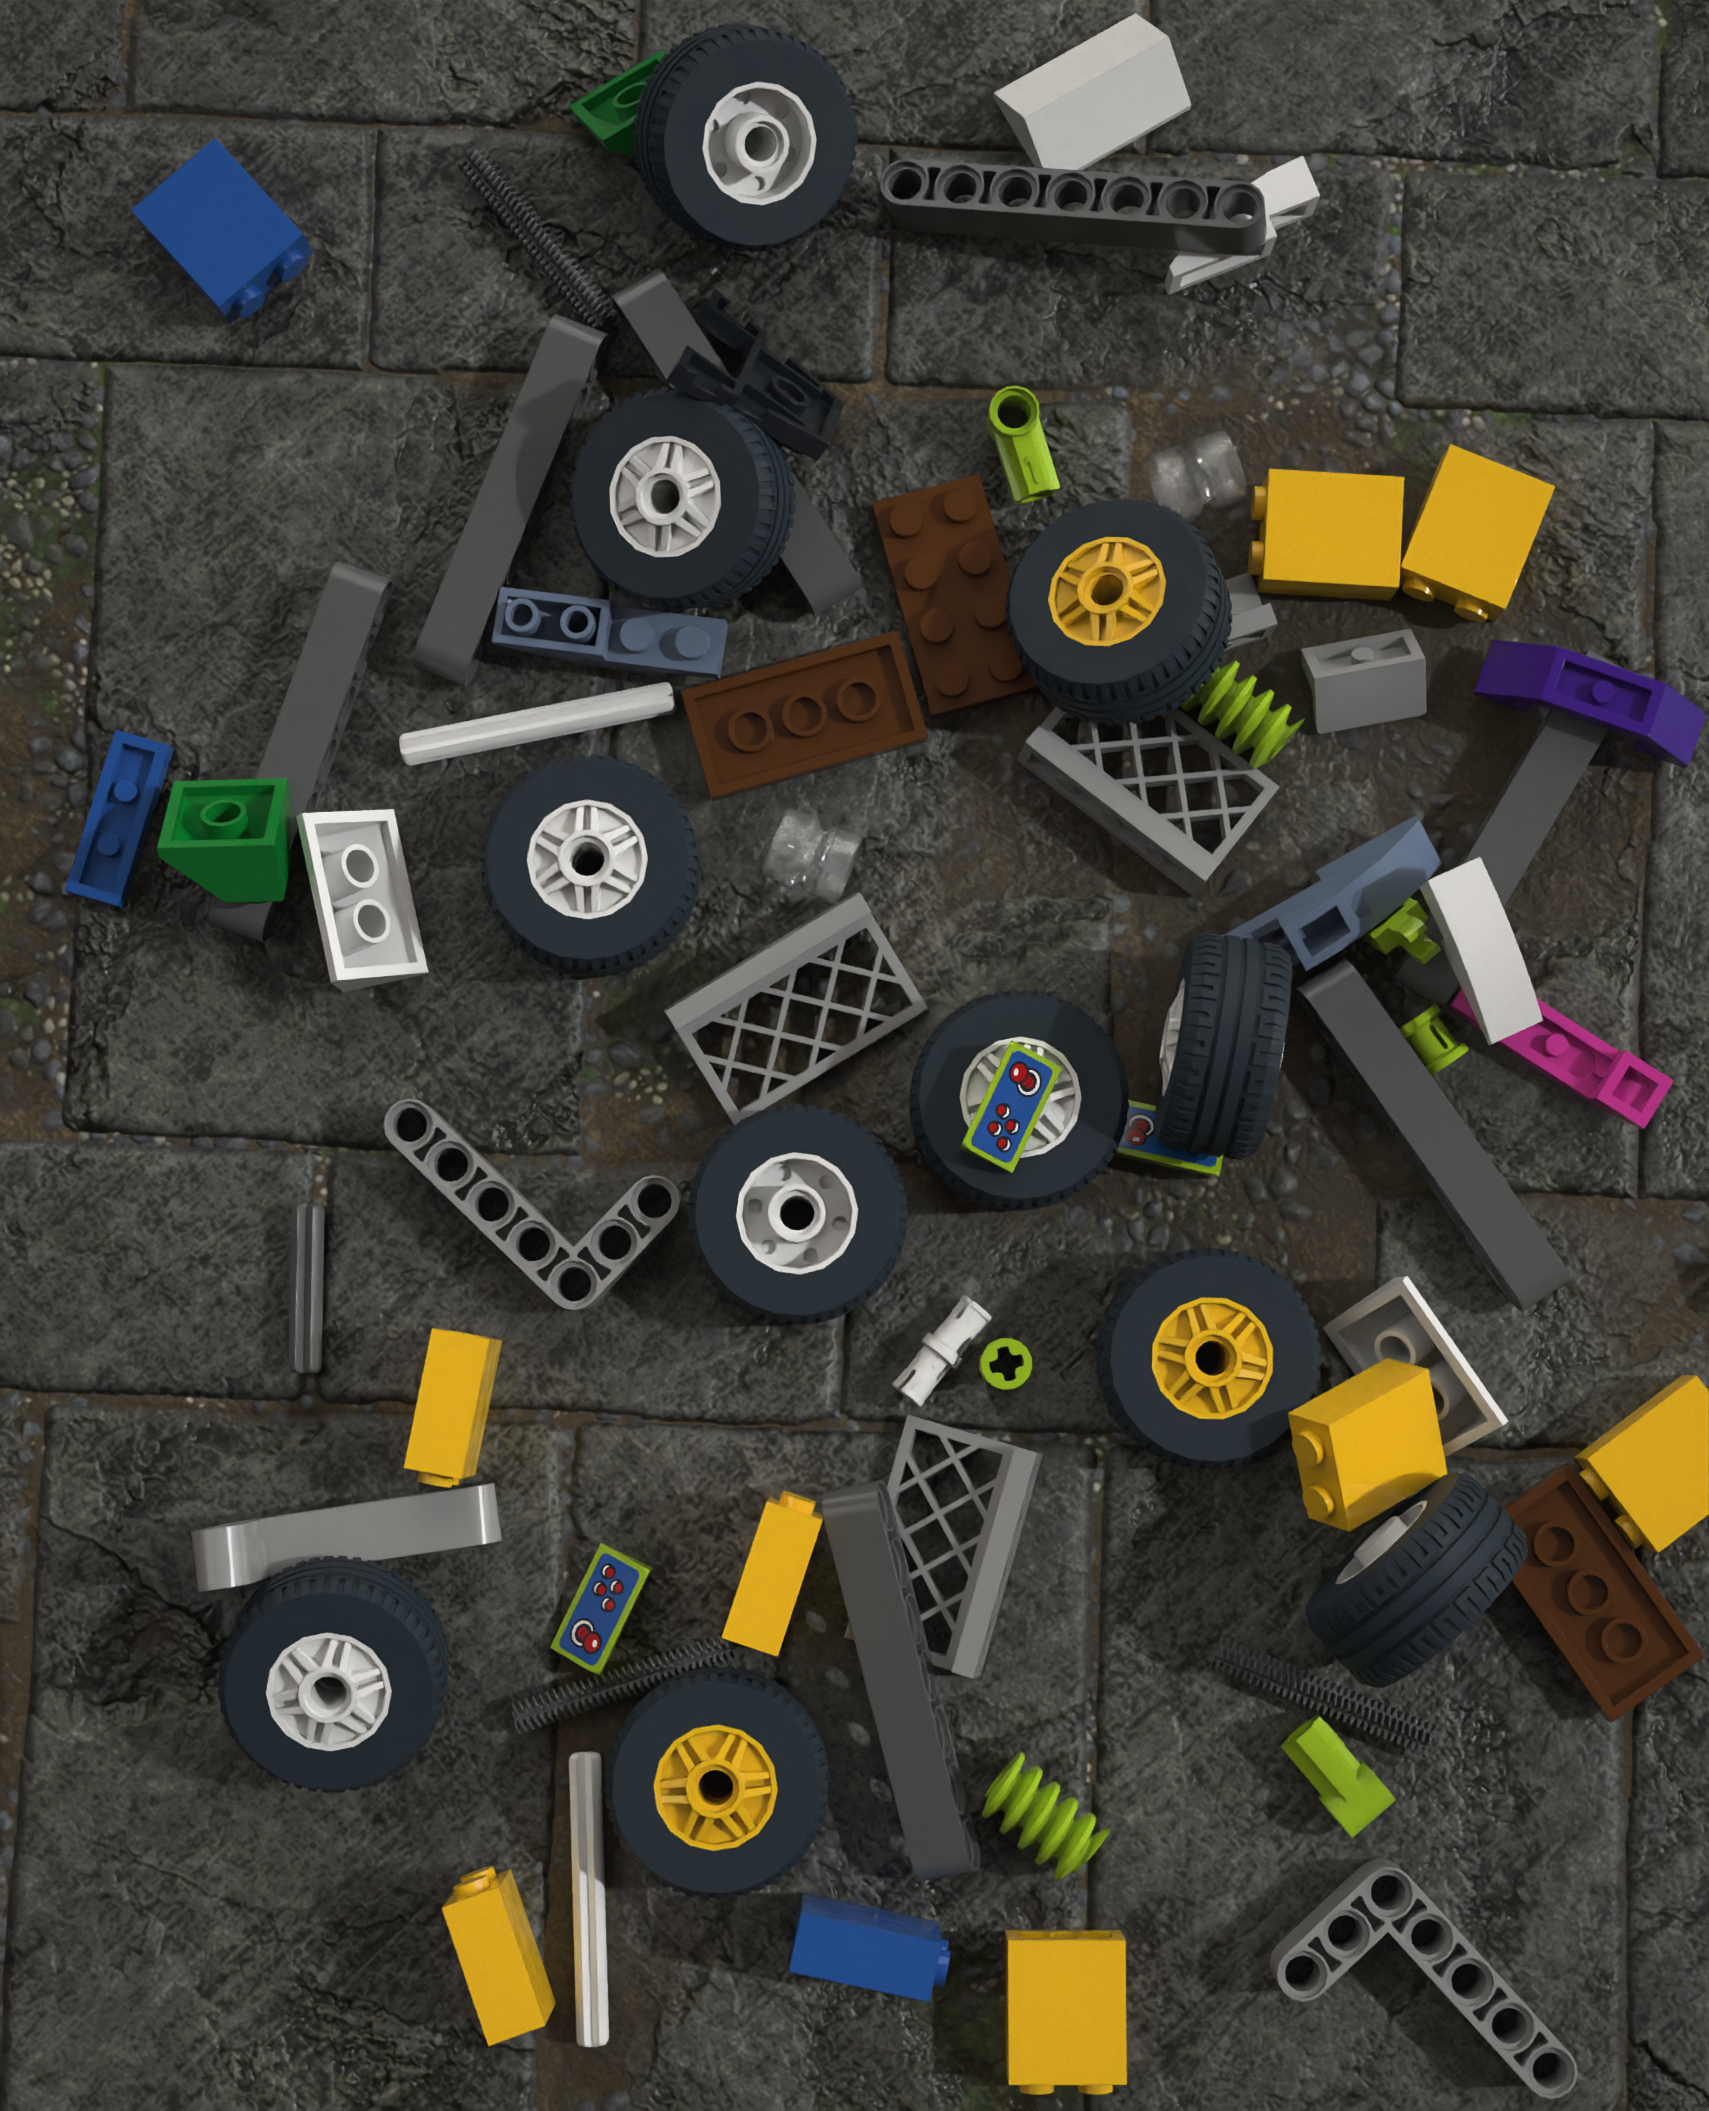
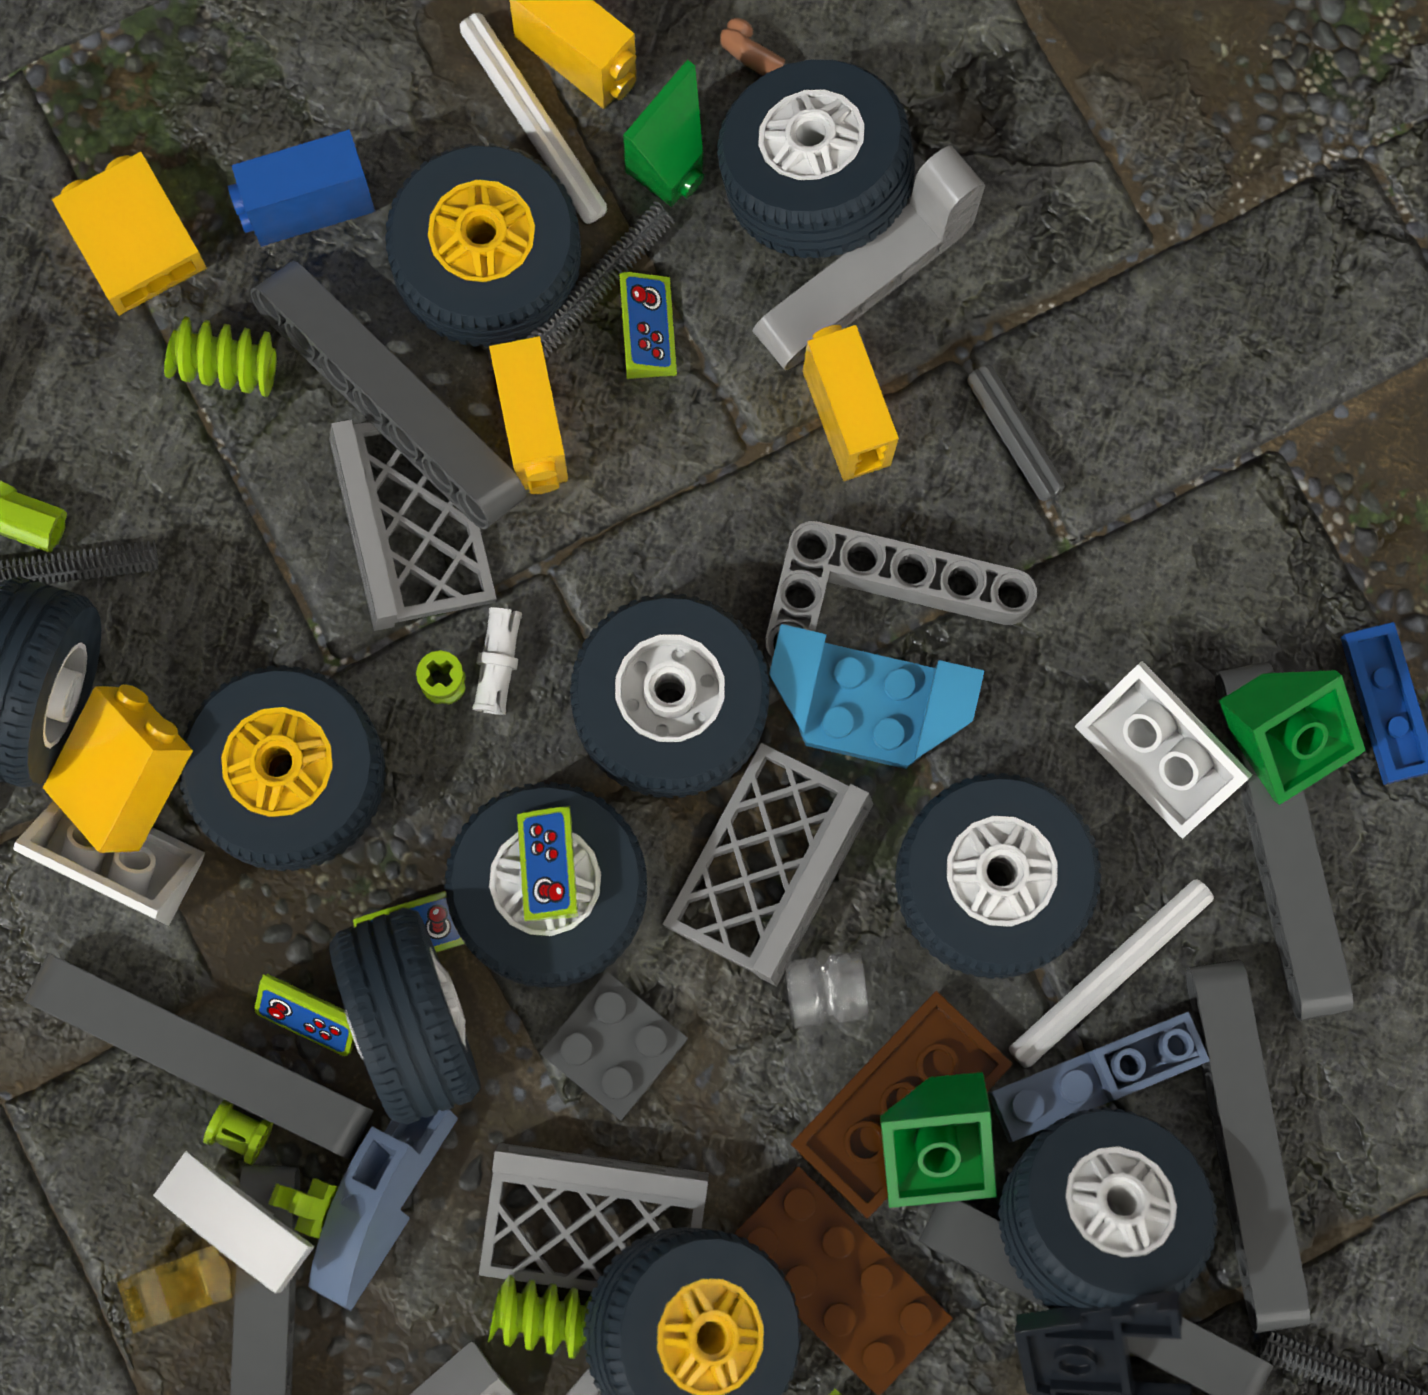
camera: 145 degrees right, 5 degrees down
(331, 1840) = (750, 53): none -> nougat arm
(468, 1783) = (666, 140): none -> green slope
(605, 1104) = (869, 701): none -> dark azure piece
(791, 653) = (940, 1143): none -> green slope
(1038, 922) = (614, 1046): none -> dark grey plate
(1310, 1118) = (304, 1014): none -> slope
(1565, 928) = (175, 1289): none -> clear yellow brick
(1584, 1064) = (98, 1187): dark pink slope -> none

